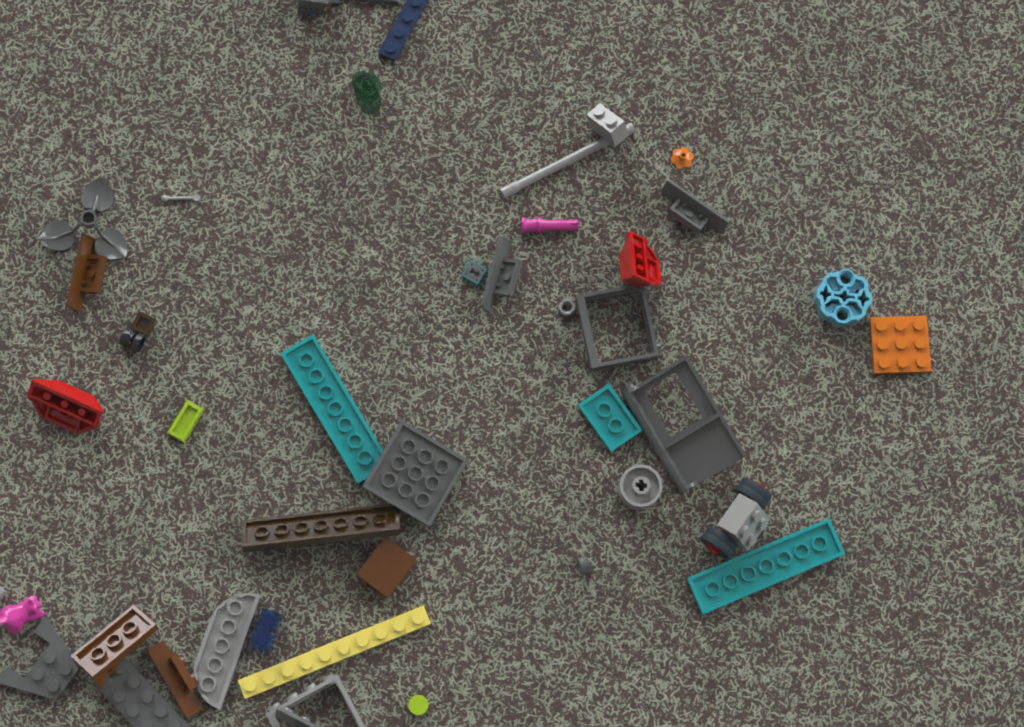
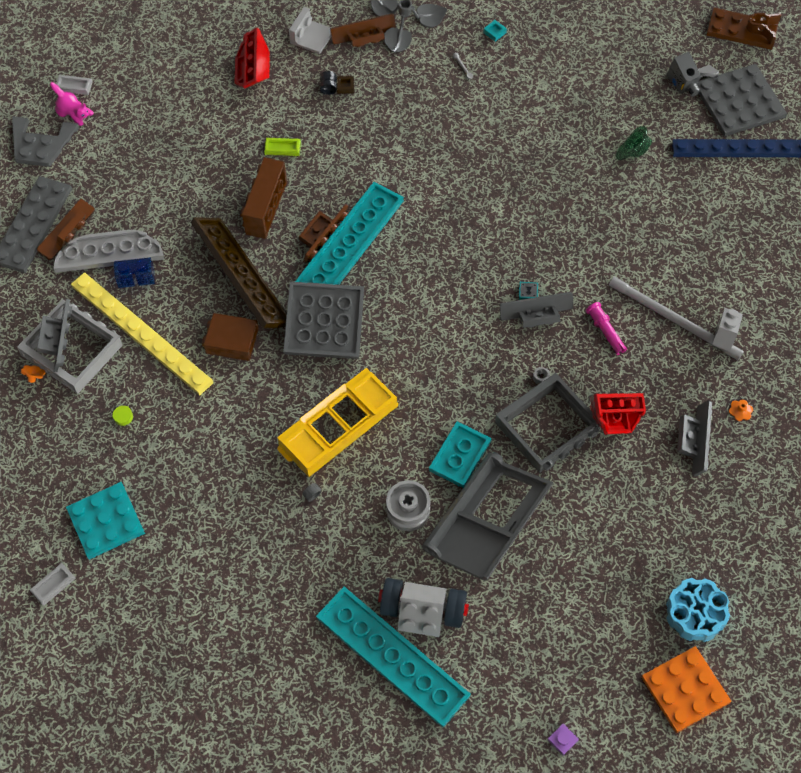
camera: 70 degrees right, 15 degrees down
(58, 327) = (308, 33): none -> light grey bracket
(107, 648) = (69, 168): reddish brown plate -> none
(155, 144) = (495, 30): none -> teal plate
(246, 465) = (264, 198): none -> reddish brown brick
(310, 432) = (318, 230): none -> reddish brown bracket
(537, 548) = (310, 449): none -> yellow piece
(896, 463) = (563, 739): none -> medium lavender plate

